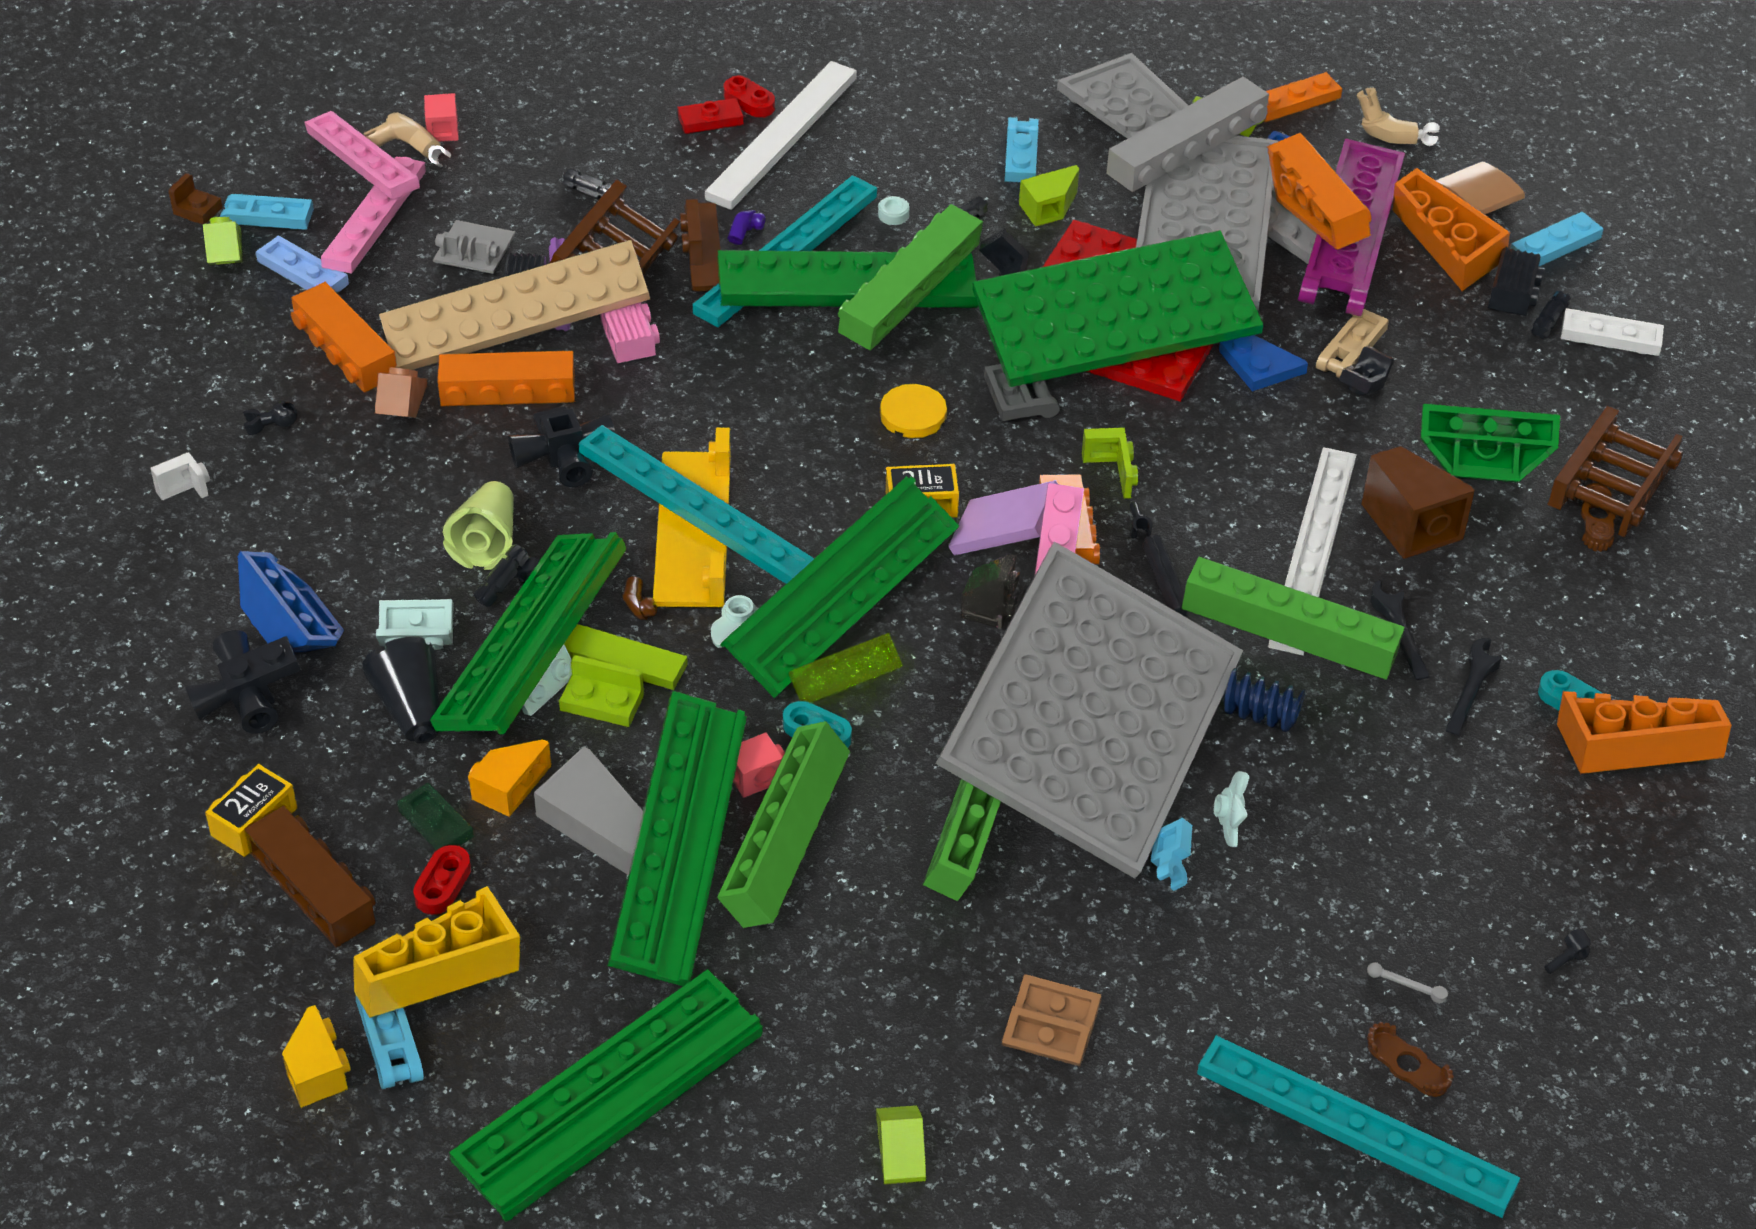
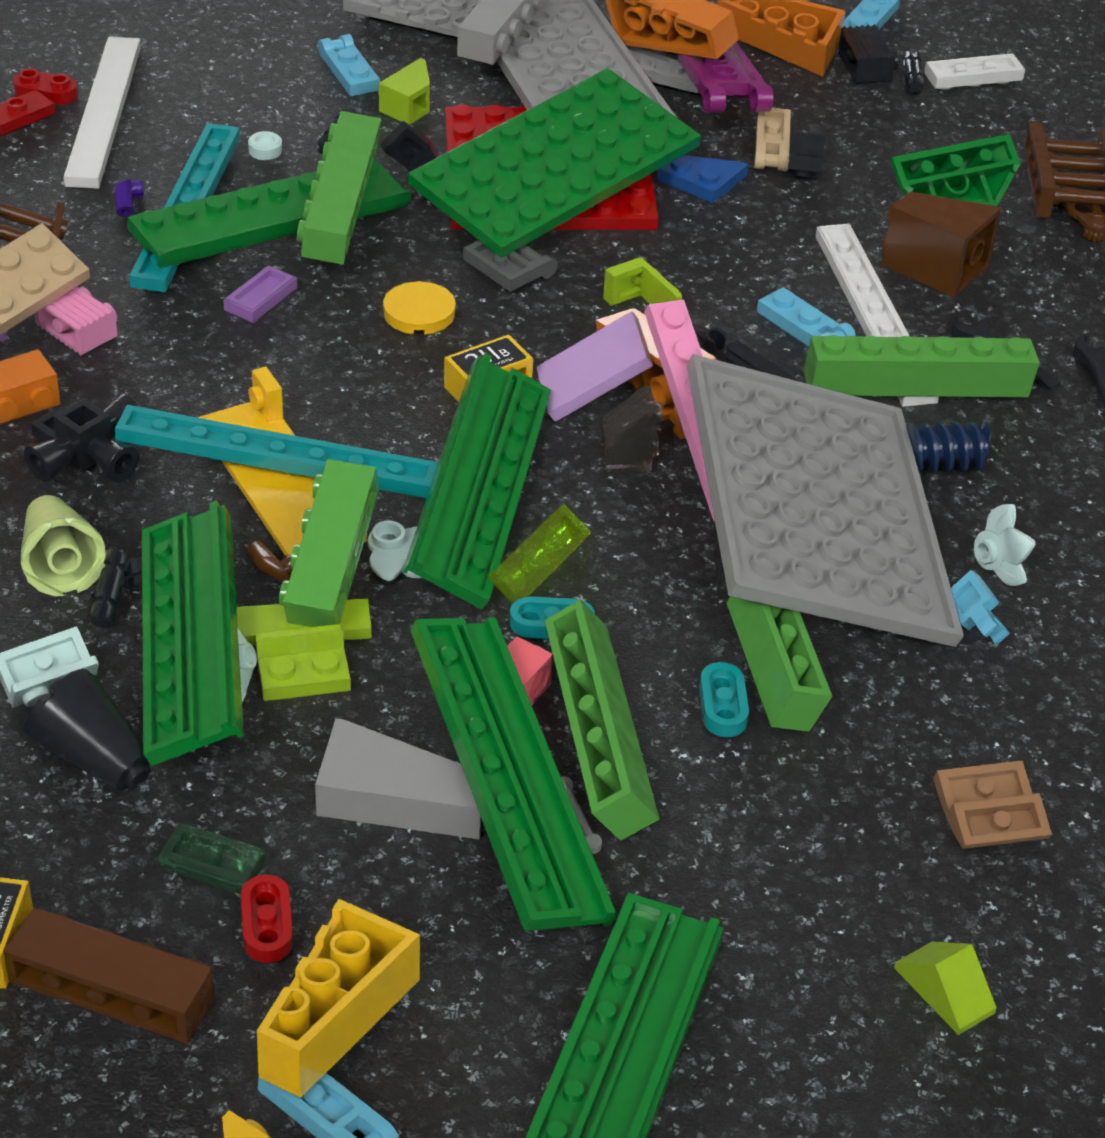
camera: 30 degrees left, 5 degrees down
(509, 775) = (262, 783): light orange slope -> none
(671, 602) = (330, 544): none -> bright green brick
(701, 243) = (97, 223): reddish brown bracket -> none
(719, 920) = (593, 840): none -> light grey hinge
(793, 354) = (260, 294): none -> medium lavender tile
(899, 850) = (724, 699): none -> teal plate
(1239, 535) = (799, 317): none -> medium azure plate

